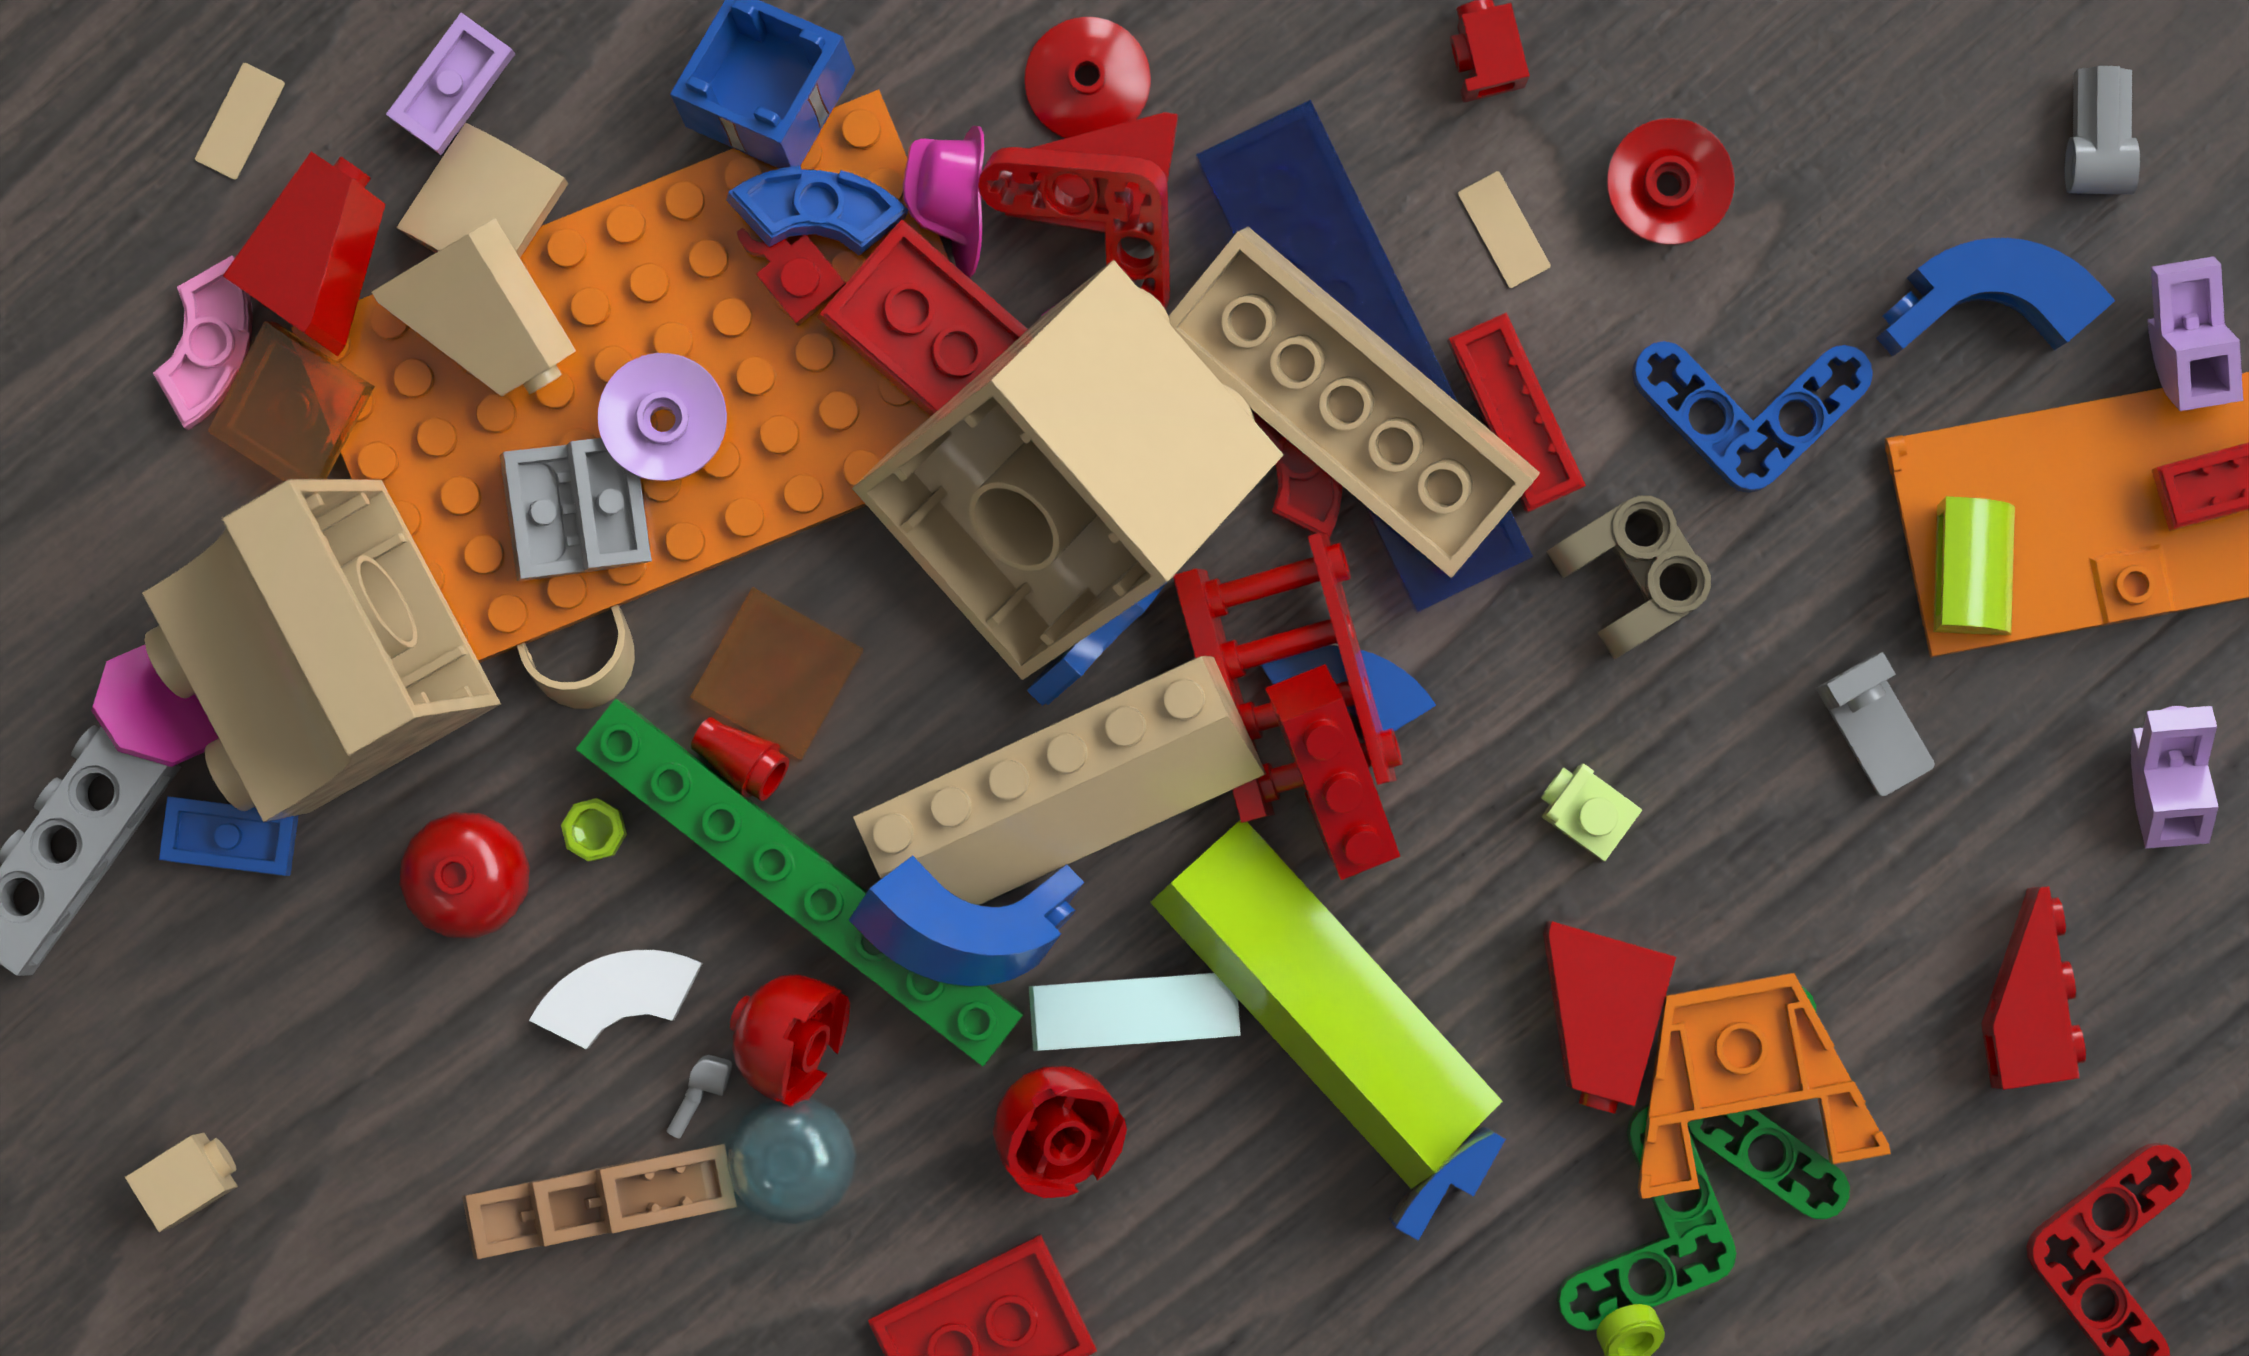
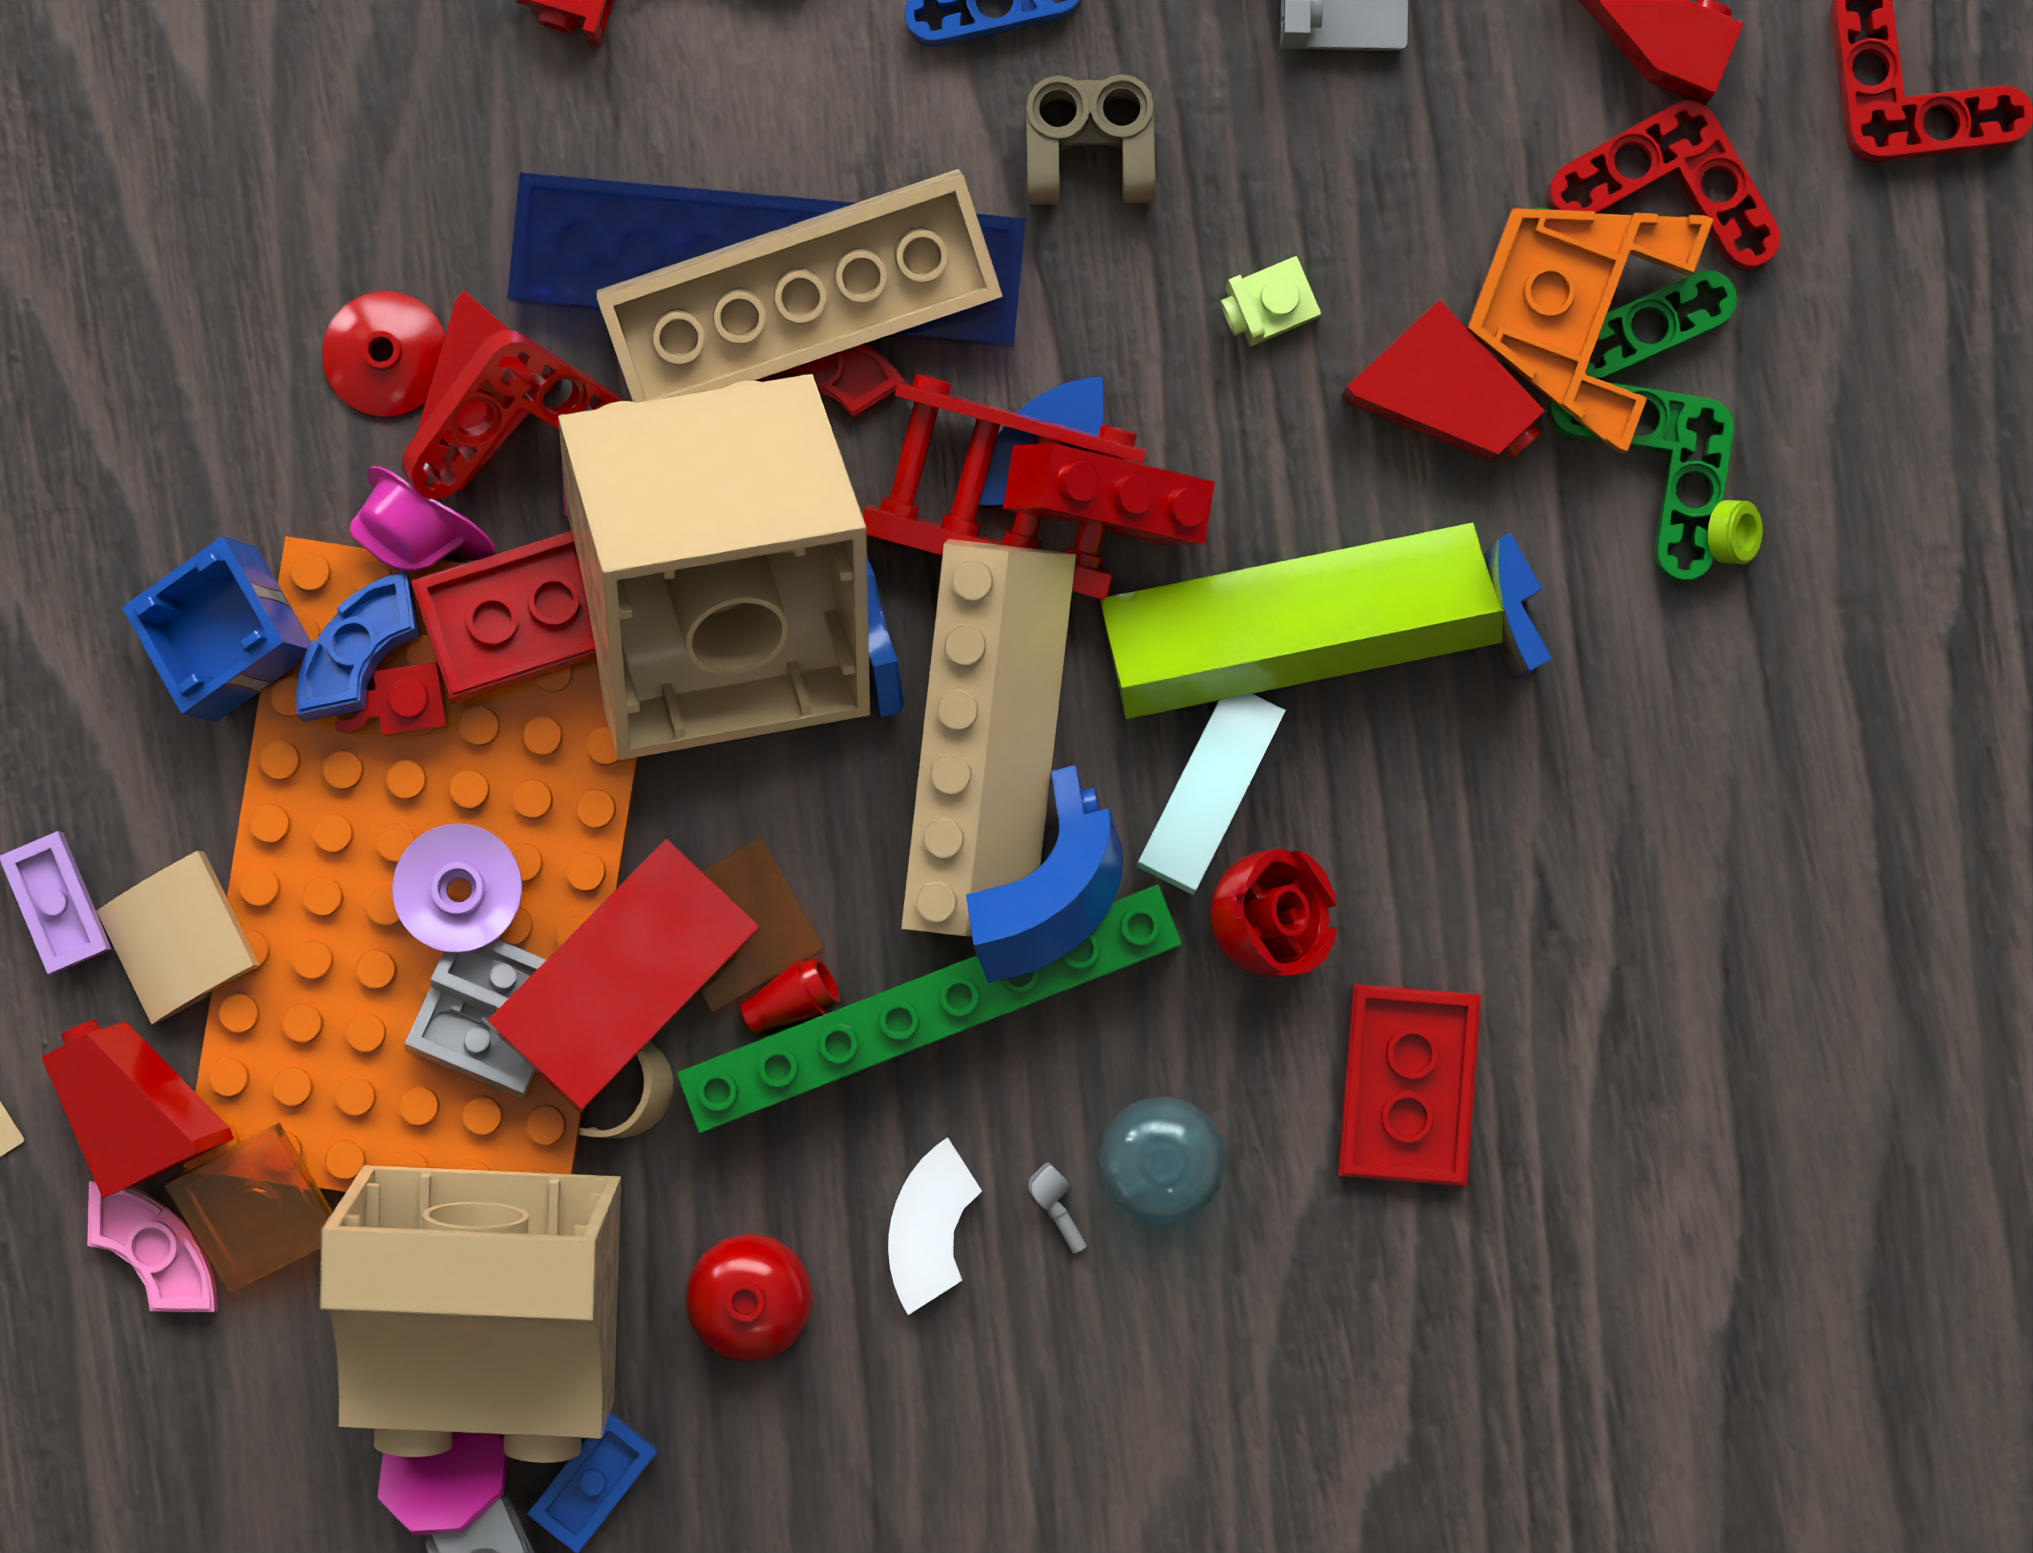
camera: 65 degrees left, 0 degrees up
(482, 311) = (271, 989): tan slope -> none
(593, 829) = (777, 1161): lime tile -> none
(599, 1201) = (1099, 1347): medium nougat slope -> none
(671, 602) = (622, 975): none -> red tile
(785, 1034) = (1052, 1099): red cylinder -> none
(1504, 229) = (730, 77): tan sticker -> none
(1516, 407) = (888, 156): red plate -> none
(1927, 1105) = (1688, 165): none -> red beam

